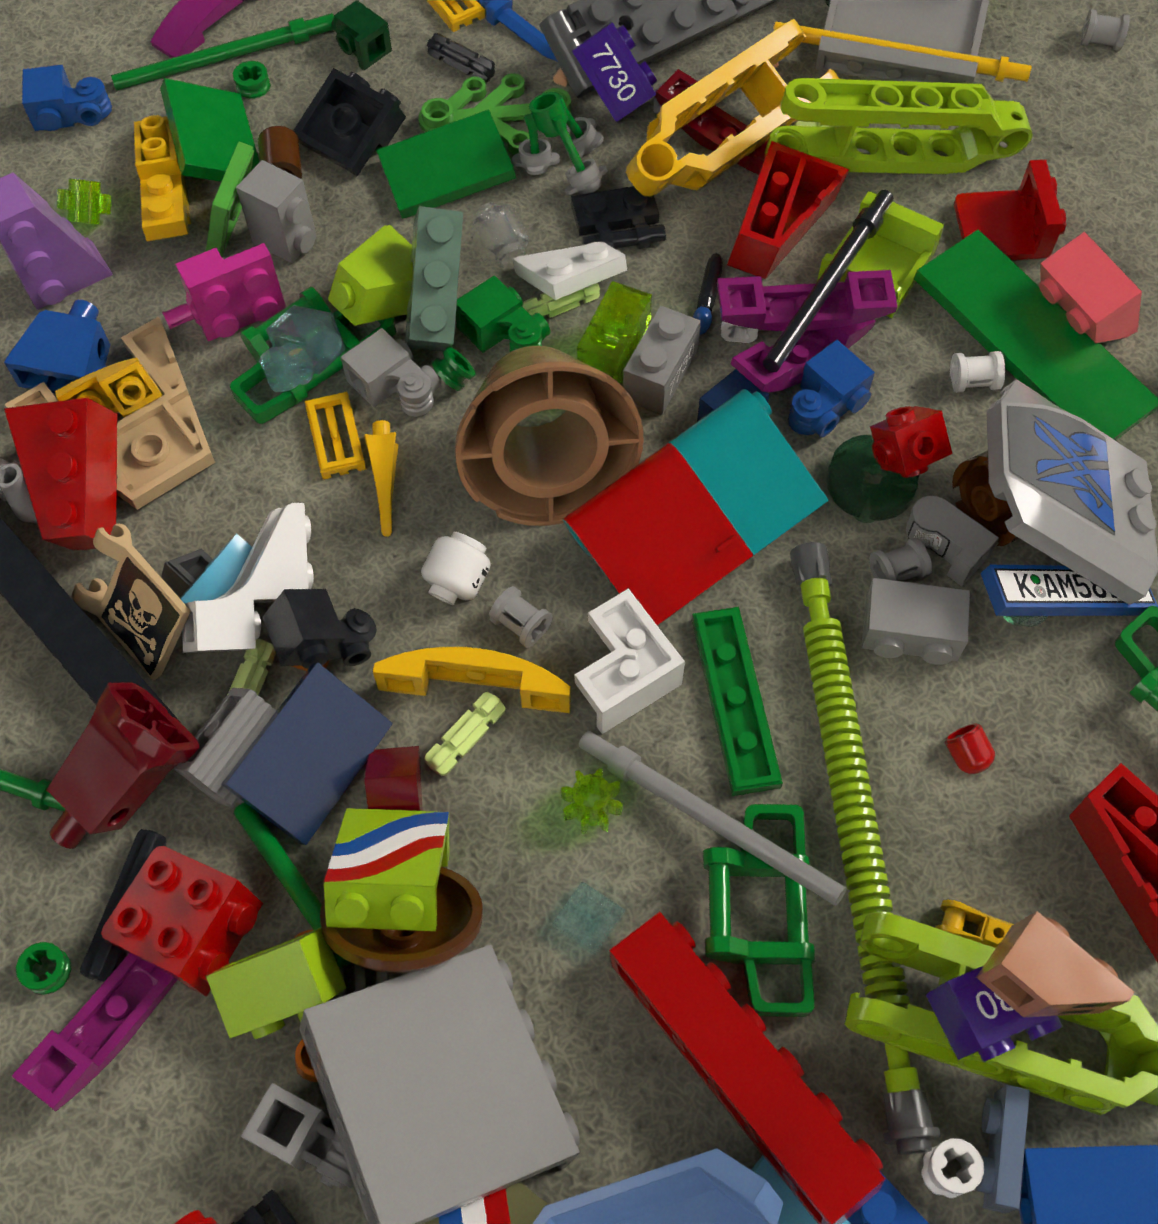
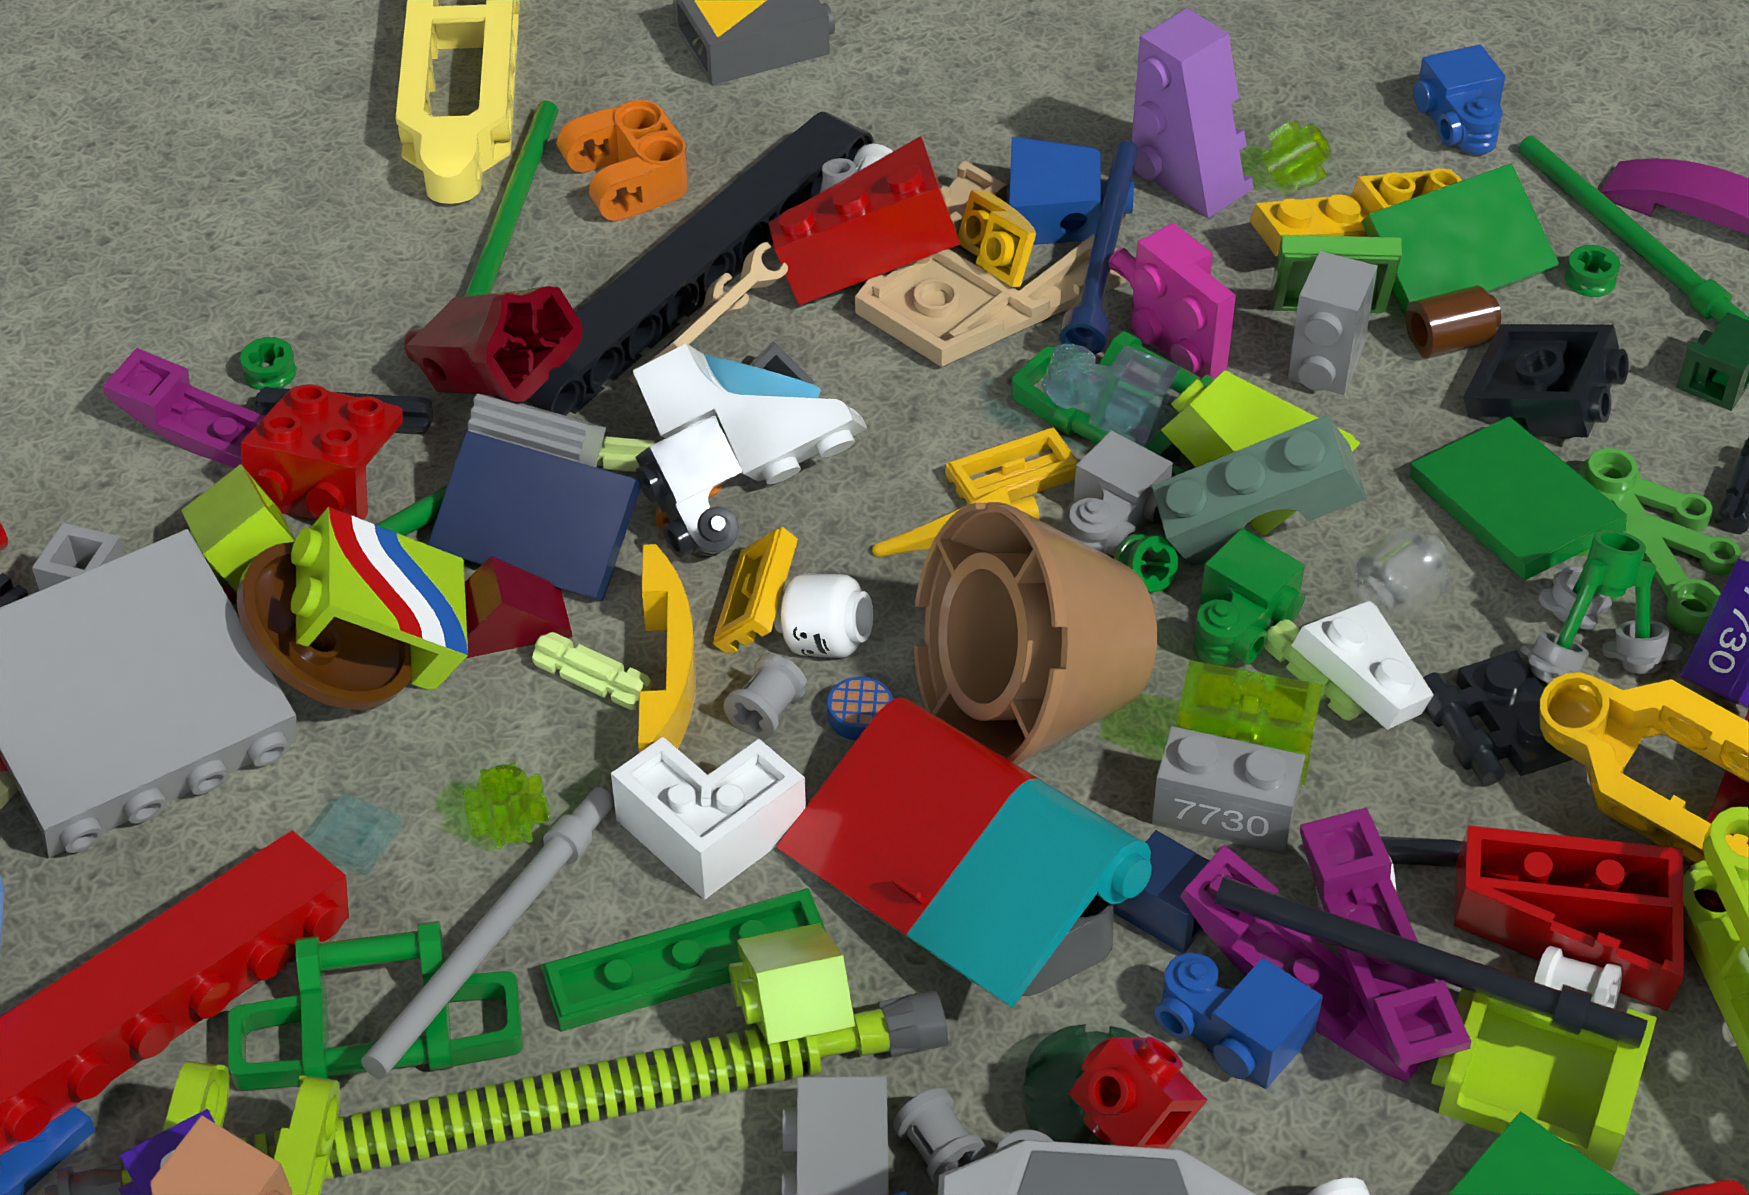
camera: 80 degrees right, 15 degrees down
(219, 357) = (1087, 321): none -> dark blue piece
(425, 594) = (755, 590): none -> yellow tile
(537, 562) = (855, 704): none -> tile
(795, 620) = (792, 983): none -> piece
(828, 227) = (1600, 981): none -> white bush

